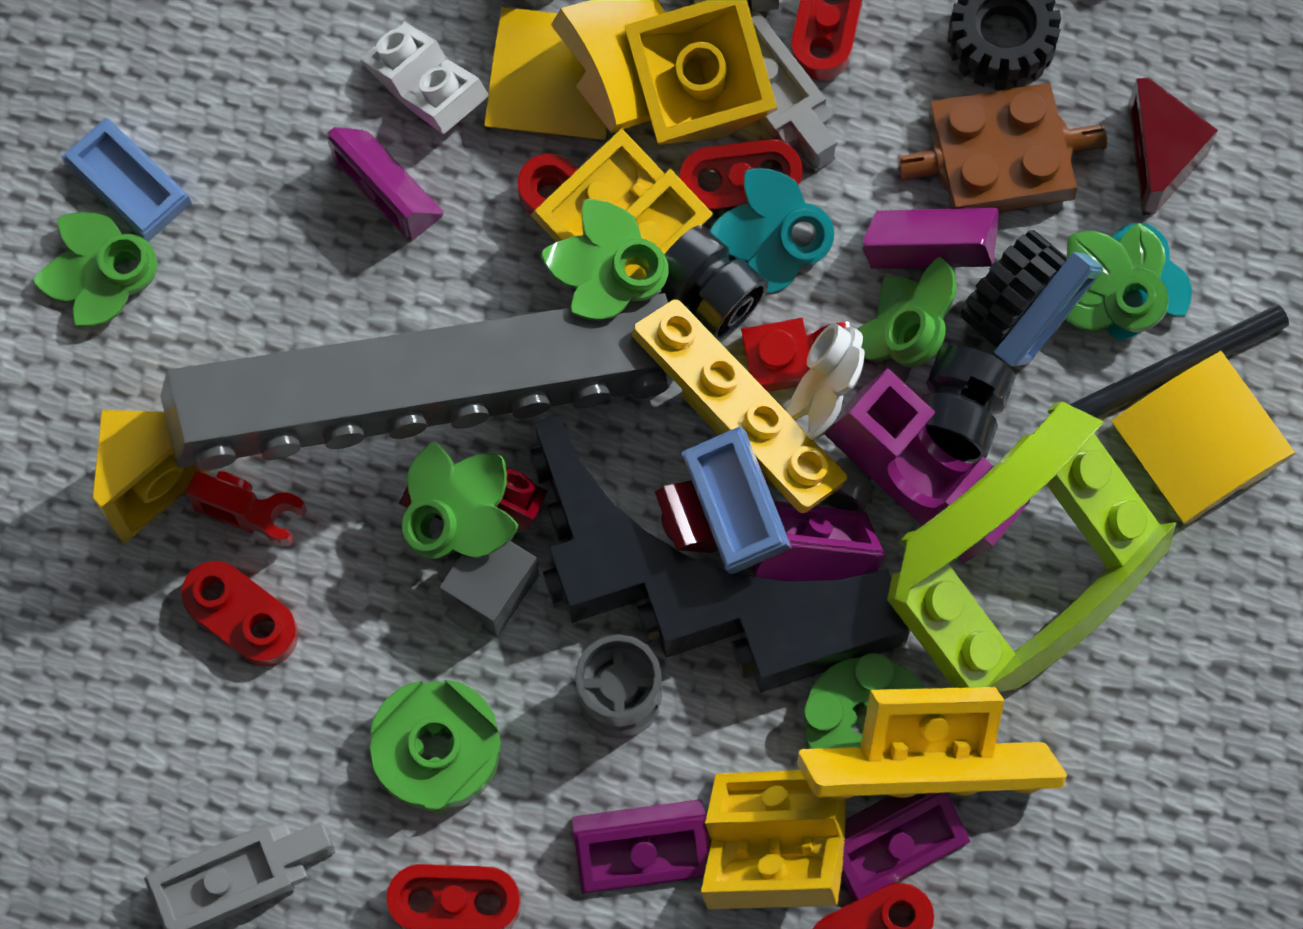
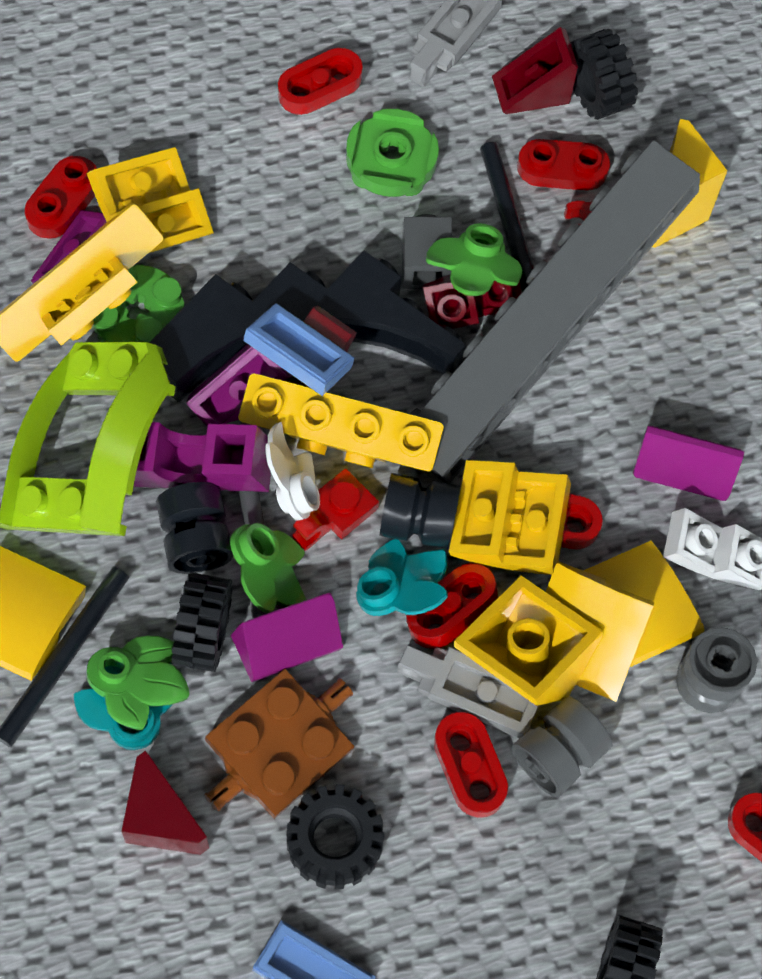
camera: 140 degrees right, 5 degrees down
(115, 675) = (603, 74): none -> black tyre
(188, 736) = (539, 76): none -> dark red slope
(356, 577) = (507, 209): none -> black bar
(598, 259) = (498, 453): bright green plate -> none
(619, 686) = (302, 229): dark grey wheel -> none
(641, 846) = (235, 172): magenta slope -> none
(1049, 309) = (165, 622): medium blue tile -> none

